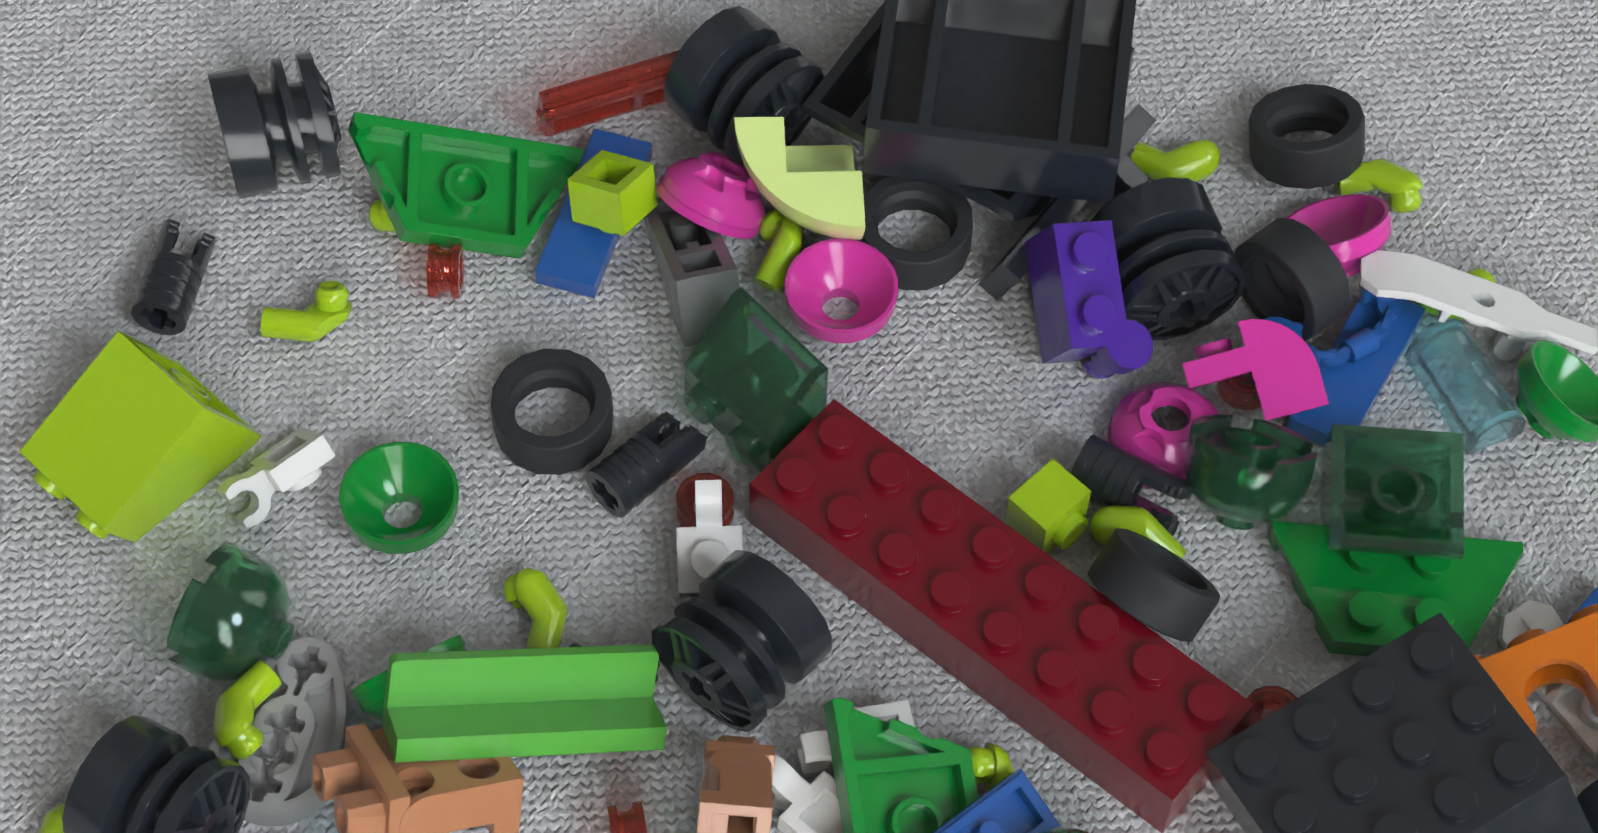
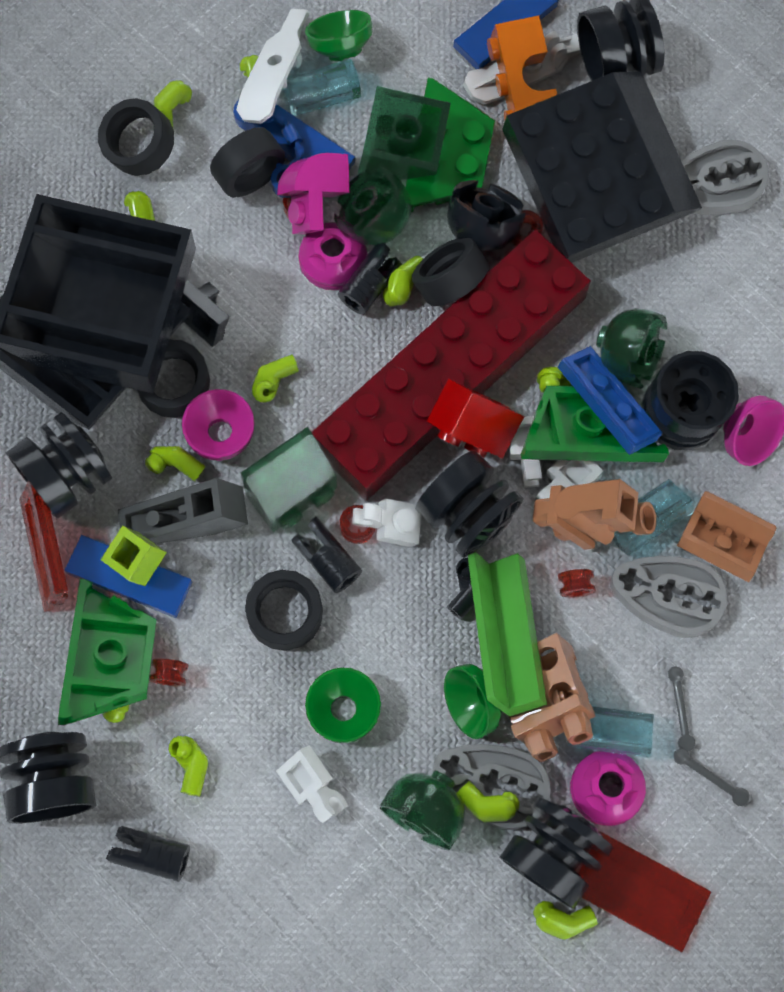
camera: 85 degrees left, 15 degrees up
(134, 440) = (284, 874): lime slope -> none
(542, 602) = (420, 624): lime arm -> none
(713, 194) = (139, 495): dark pink piece -> none
(804, 183) = (147, 432): yellowish green brick -> none
(887, 633) = (474, 419): none -> red brick
(937, 362) = (269, 377): none -> lime arm
(1049, 508) = (386, 325): lime plate -> none
(1082, 300) = (251, 280): dark purple hinge -> none
(1172, 257) = (227, 229): black wheel -> none
(1271, 630) = (484, 215): none -> black cylinder
(1350, 226) = (202, 125): dark pink piece -> none

